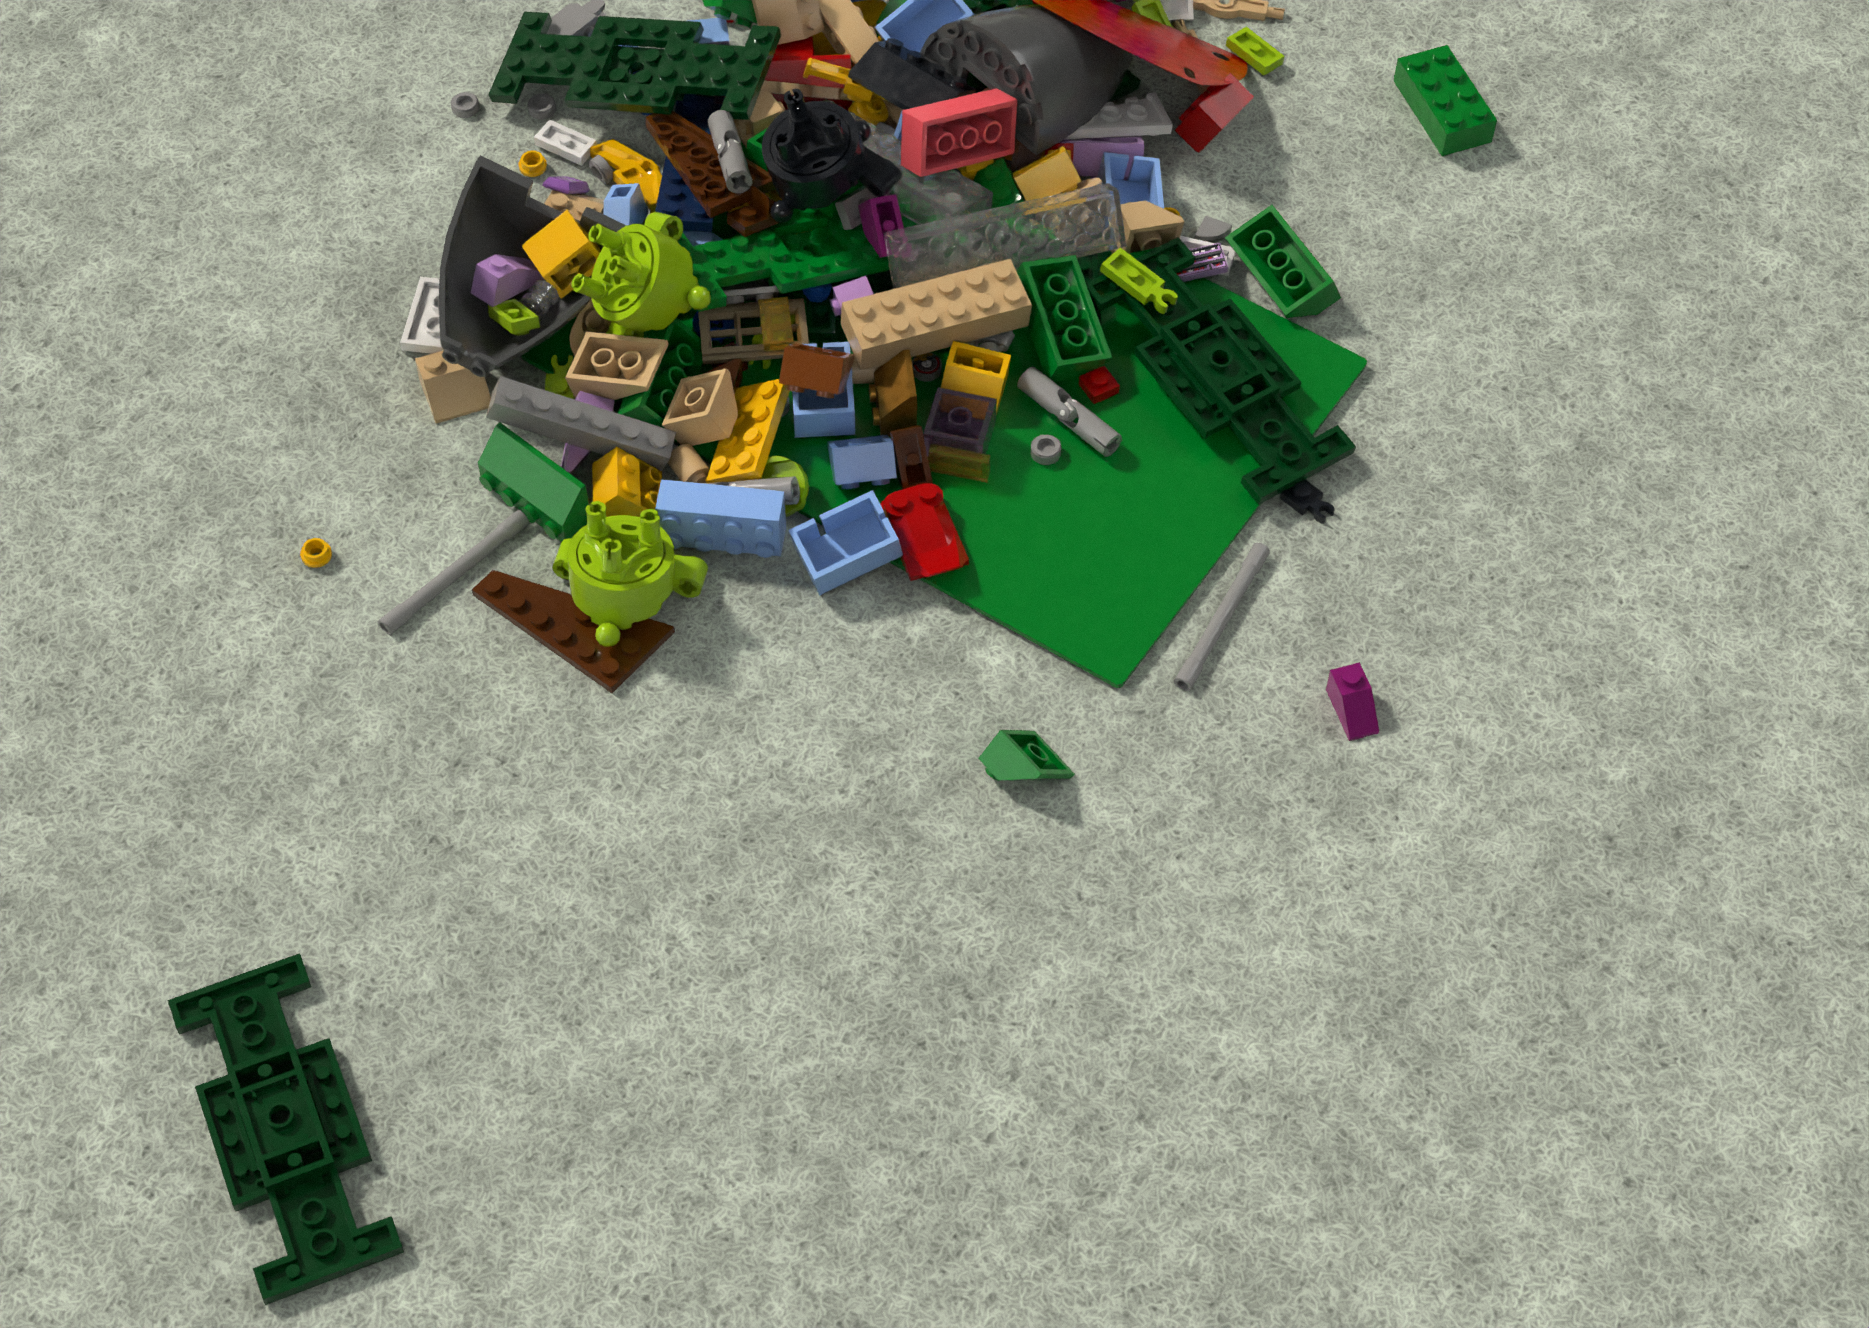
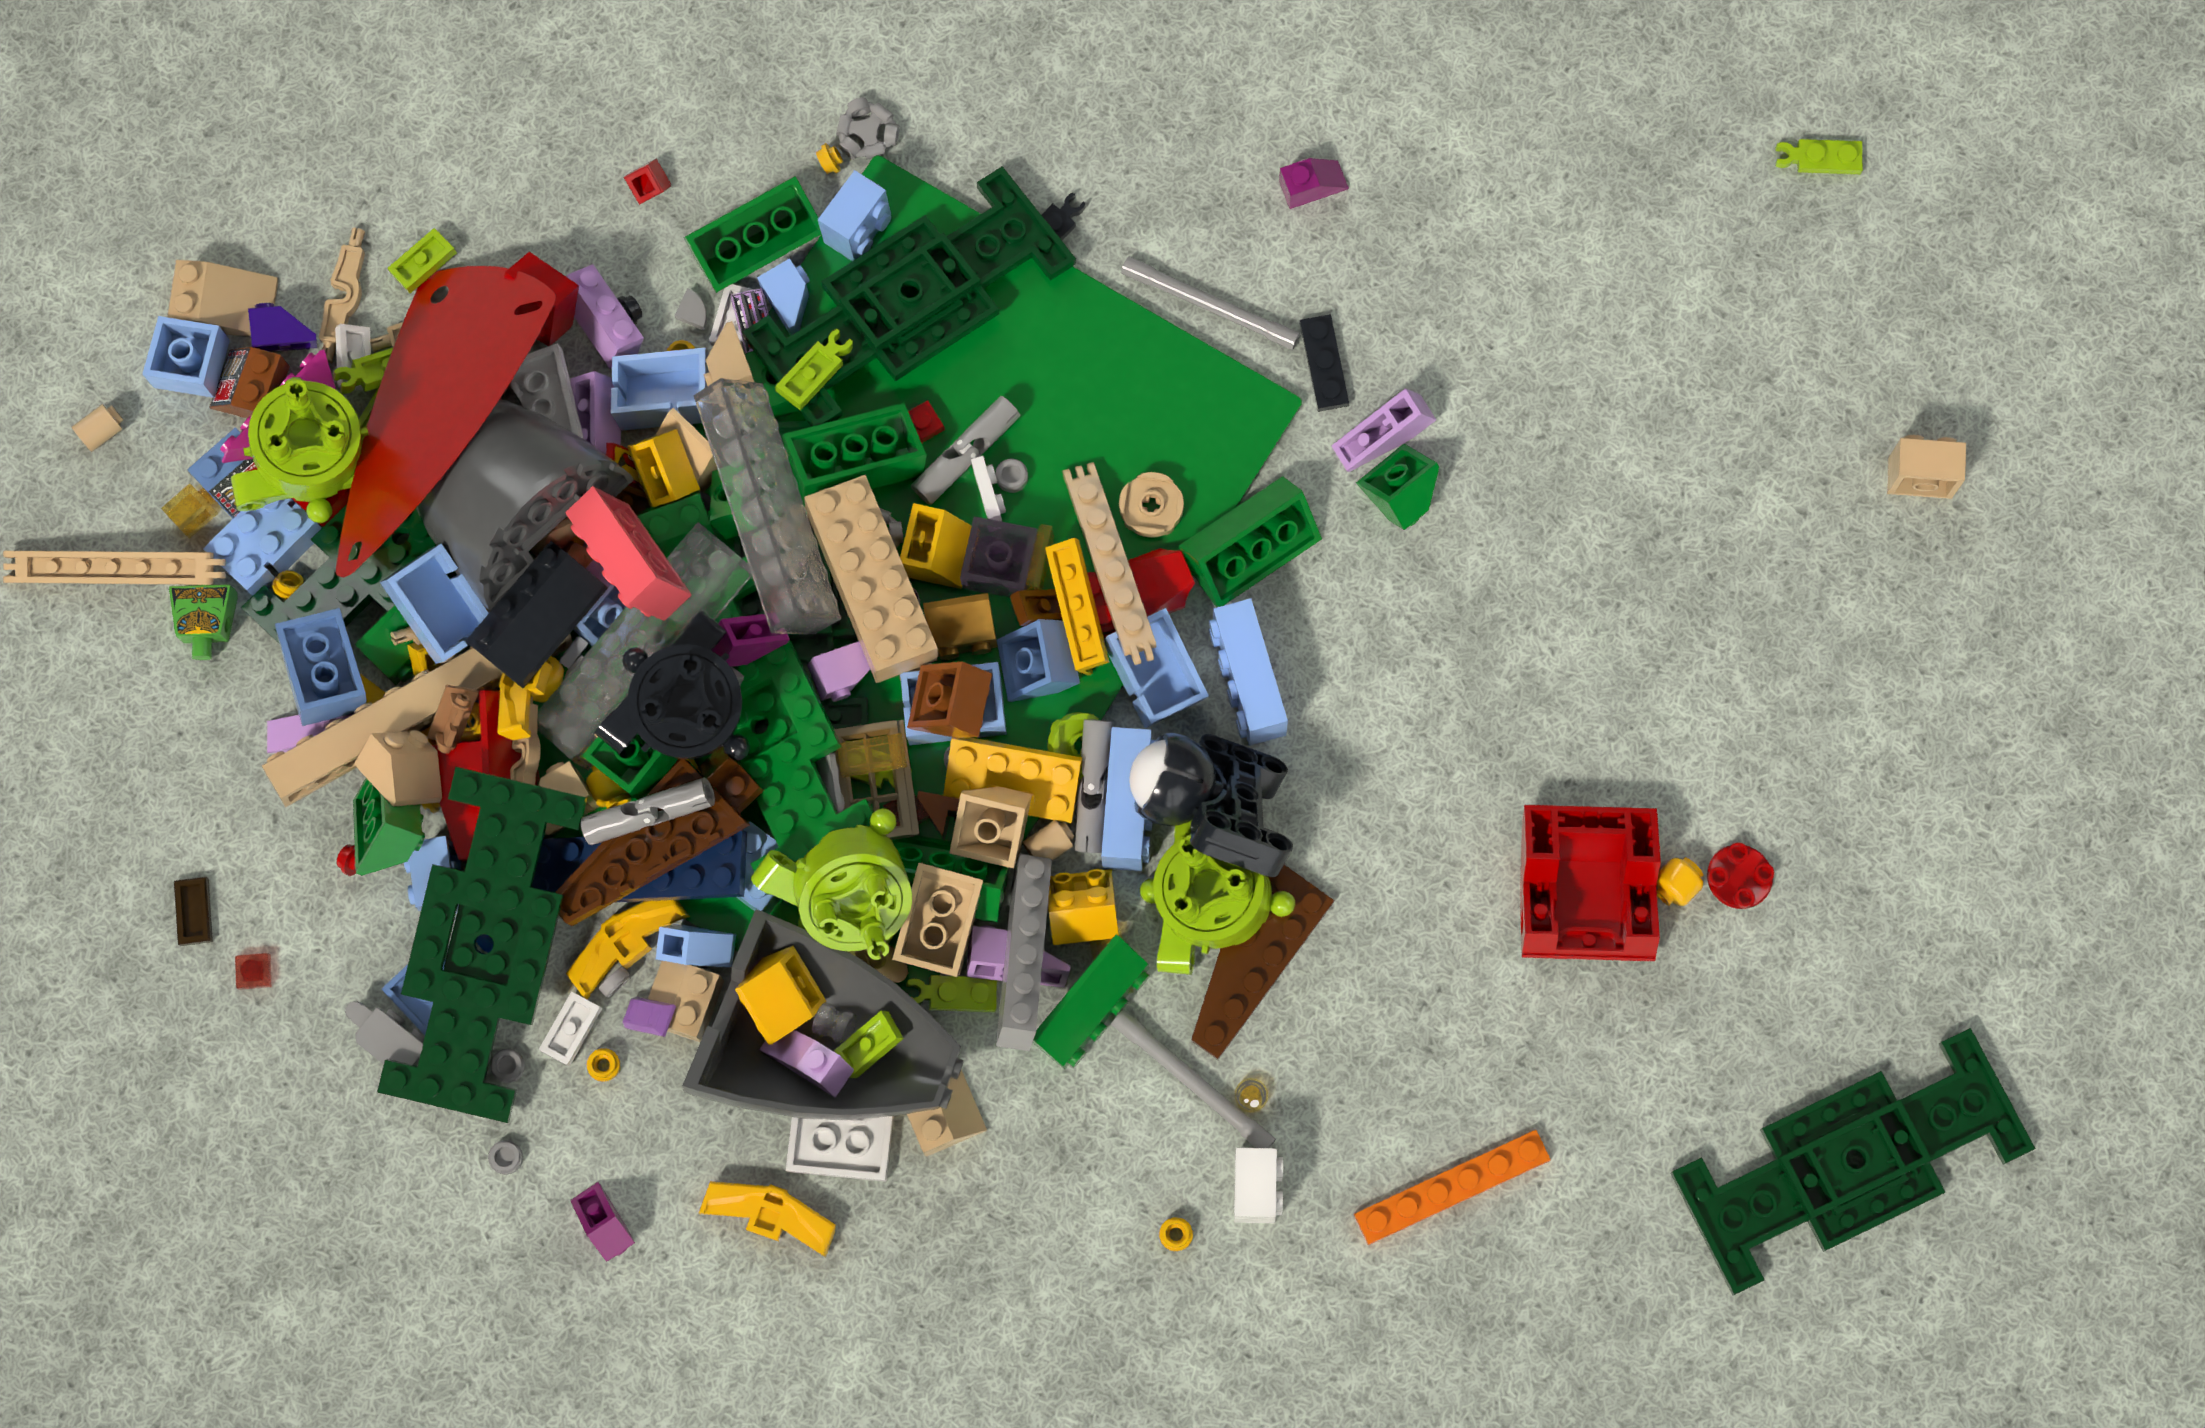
camera: 85 degrees left, 20 degrees up
(321, 773) = (1452, 1187): none -> orange plate
(343, 601) = (1256, 1185): none -> white brick
(384, 268) = (770, 1212): none -> yellow plate
(396, 158) = (602, 1222): none -> magenta slope
(434, 616) = (1251, 1095): none -> clear yellow tile
(594, 983) = (1679, 881): none -> yellow head
(594, 1042) = (1740, 876): none -> red dish
(598, 895) = (1589, 883): none -> red slope
(706, 540) = (1216, 789): none -> black beam
(830, 43) = (451, 717): none -> medium nougat hinge
(837, 617) = (1250, 673): none -> light blue brick
(946, 473) = (1077, 605): none -> yellow panel
(948, 503) = (1110, 563): none -> tan hinge
(971, 630) = (1251, 541): none -> green slope
(1006, 566) = (1139, 491): none -> tan plate
(1027, 424) = (985, 478): none -> white plate
(1028, 1248) = (1926, 467): none -> tan brick
(1089, 753) = (1384, 430): none -> lavender slope
(1160, 708) = (1324, 363): none -> black plate
(1202, 160) = (604, 317): none -> lavender brick
(1209, 183) = (631, 307): none -> black plate
(1221, 283) = (786, 293): none -> light blue slope
(1296, 325) = (855, 216): none -> light blue brick
(1335, 200) = (647, 181): none -> red slope
(1361, 325) = (829, 158): none -> yellow plate
(1391, 361) = (866, 129): none -> light grey piece
(1403, 1190) = (1822, 156): none -> lime plate
(1444, 100) = (503, 60): green brick -> none

